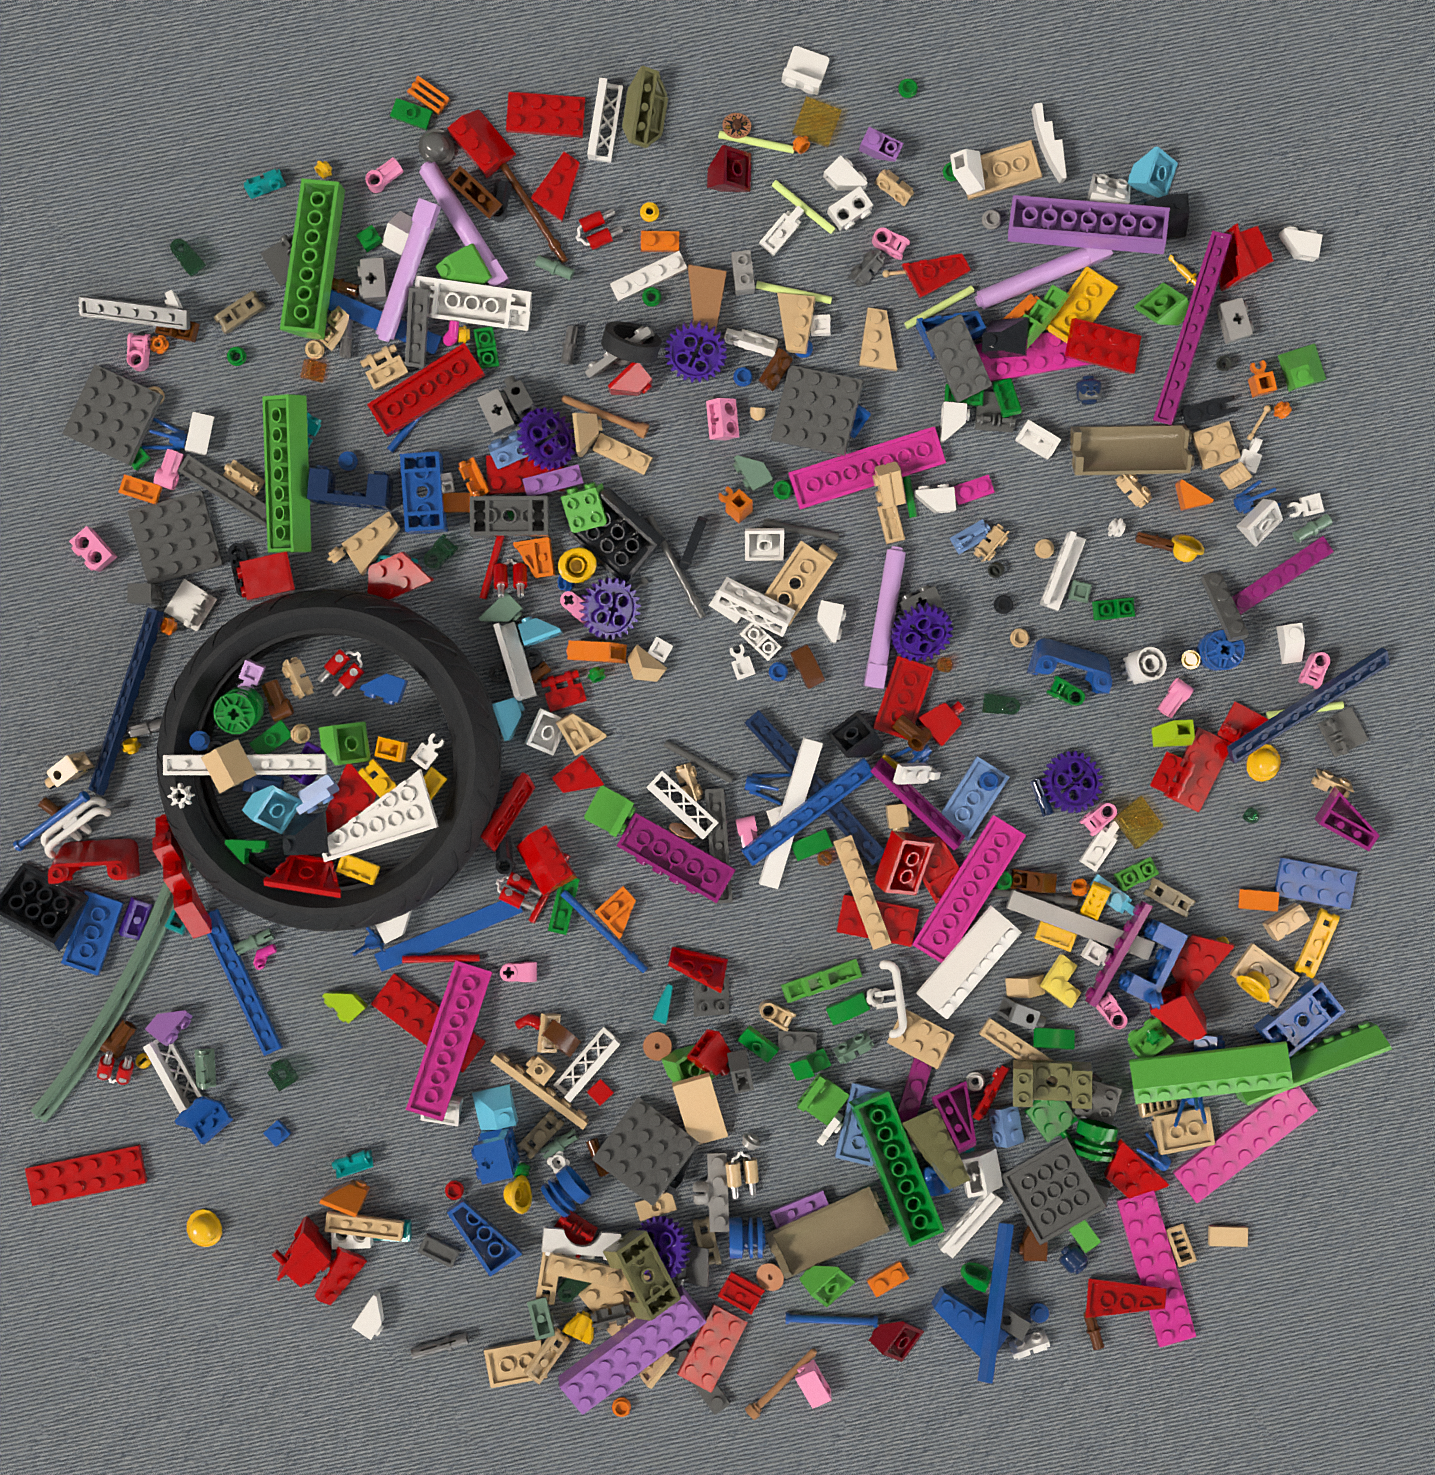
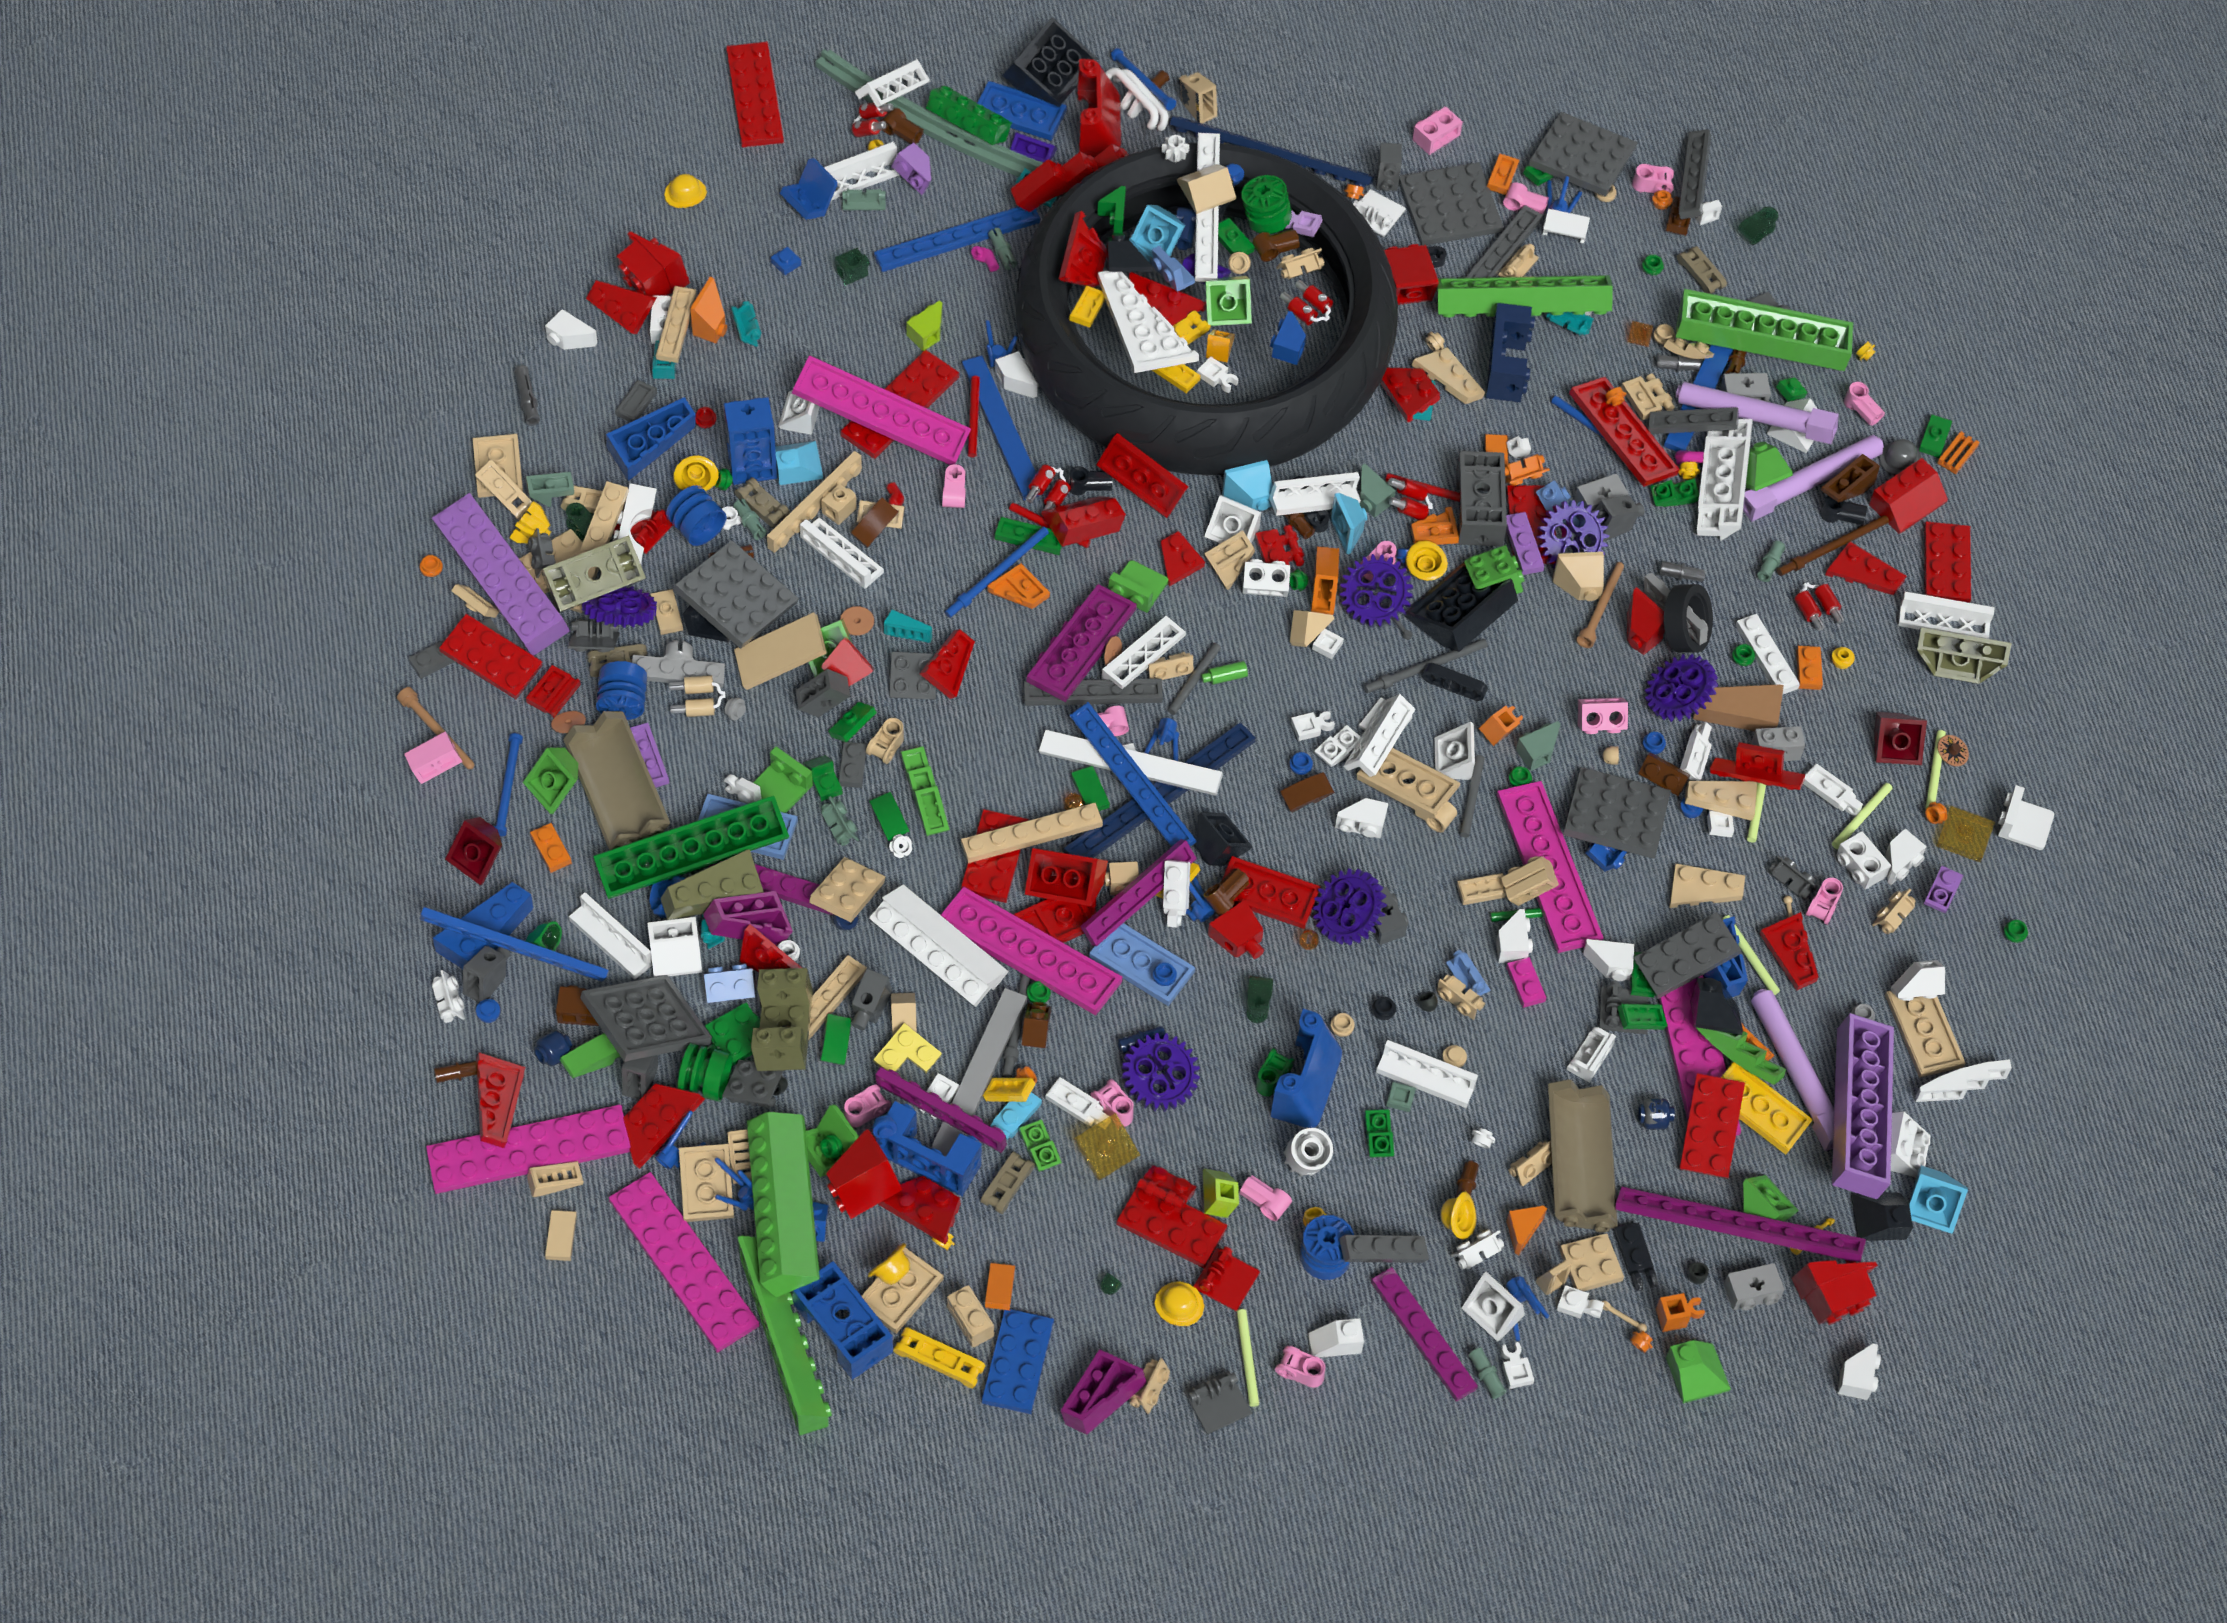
camera: 90 degrees right, 30 degrees down
(69, 1054) = (895, 79): none -> white fence
(106, 980) = (968, 115): none -> green brick
(272, 181) = (1844, 298): teal hinge -> none
(348, 461) = (1540, 359): blue plate -> none
(394, 395) = (1615, 396): none -> orange plate
(425, 513) = (1484, 413): blue plate -> none
(441, 552) = (1440, 436): clear green piece -> none
(600, 1092) = (807, 563): red tile -> none
(606, 702) = (1266, 584): none -> white brick
(622, 454) = (1557, 619): tan plate -> none
(693, 735) = (1225, 673): none -> bright green cylinder
(771, 290) = (1758, 765): none -> red bracket
(885, 616) = (1302, 864): lavender brick -> none
(898, 993) = (898, 863): white piece -> none
(1055, 936) = (964, 1047): yellow plate -> none
(1213, 541) = (1469, 1252): none -> white hinge
(1308, 705) = (1256, 1349): dark blue plate -> none

